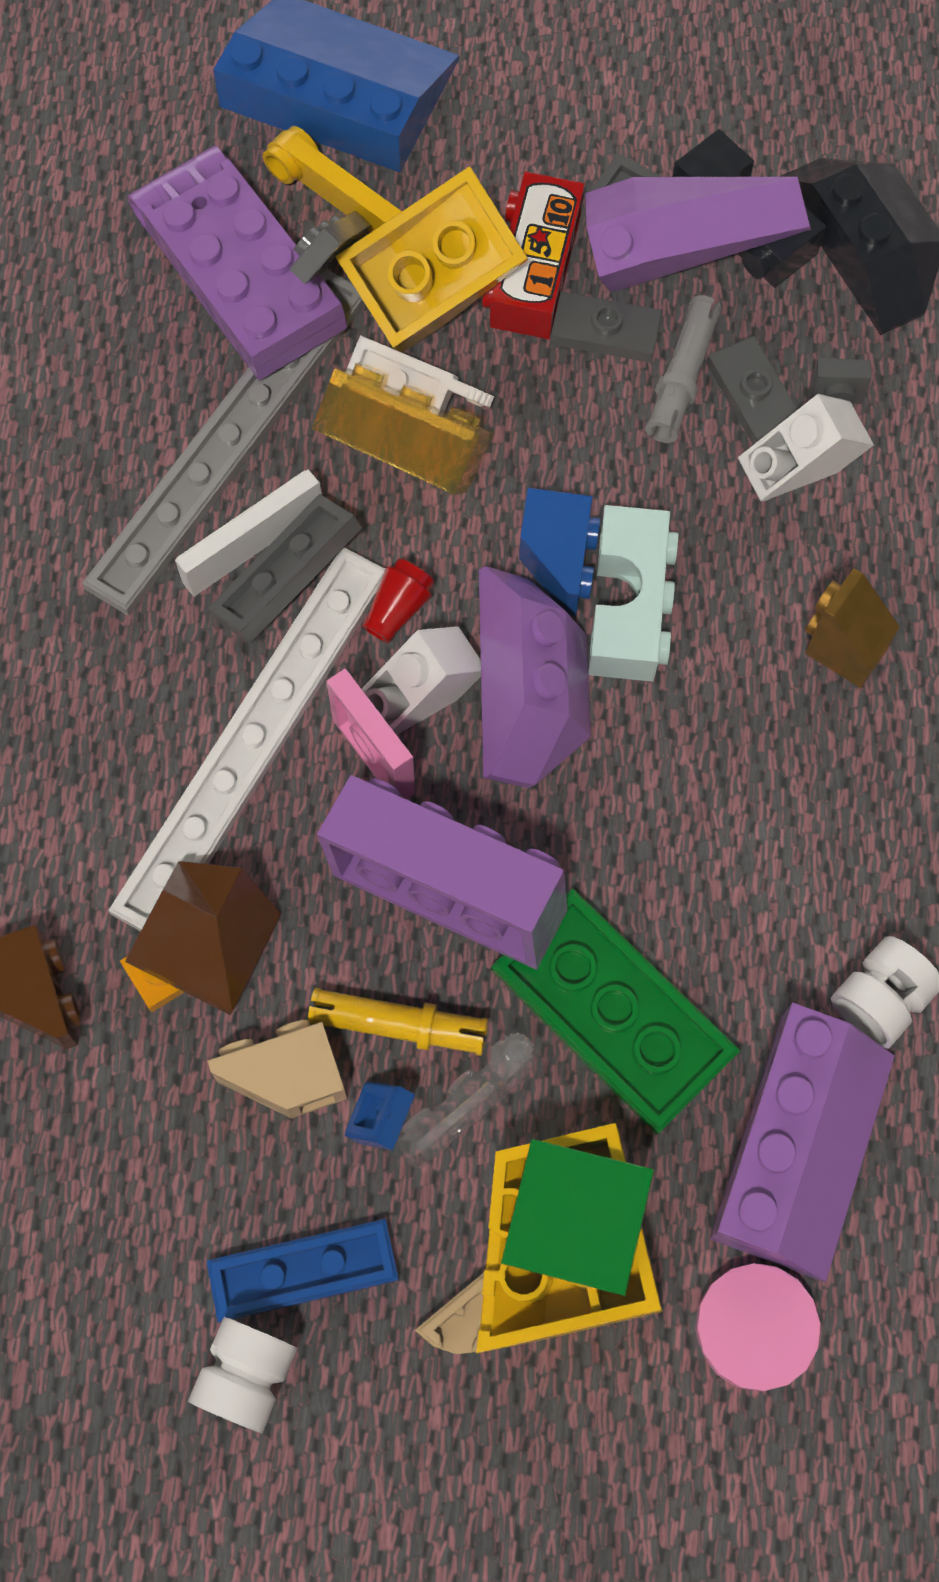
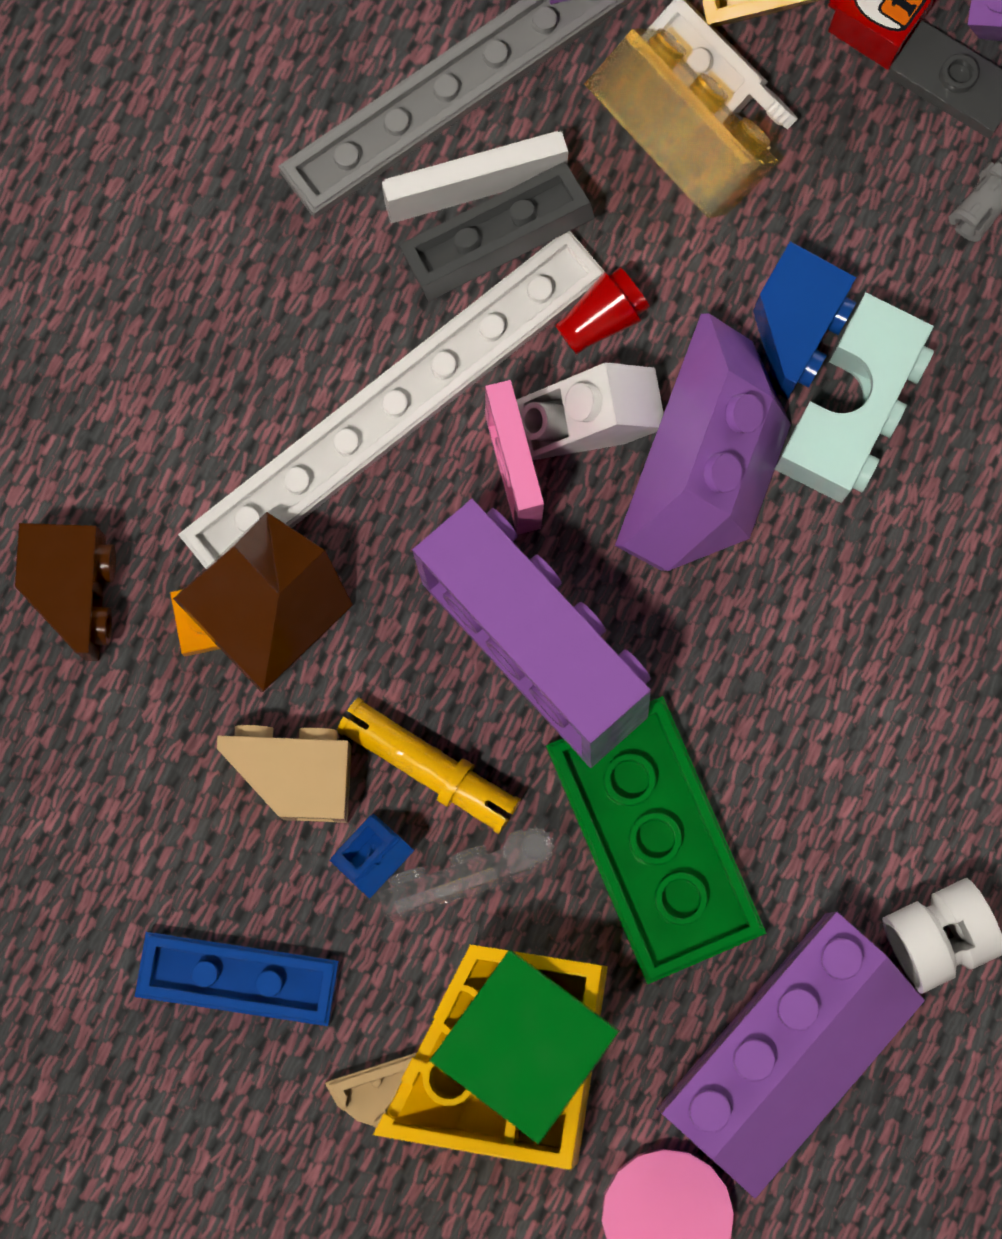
camera: 20 degrees right, 10 degrees up
(242, 1375) = (134, 1064): white wheel -> none

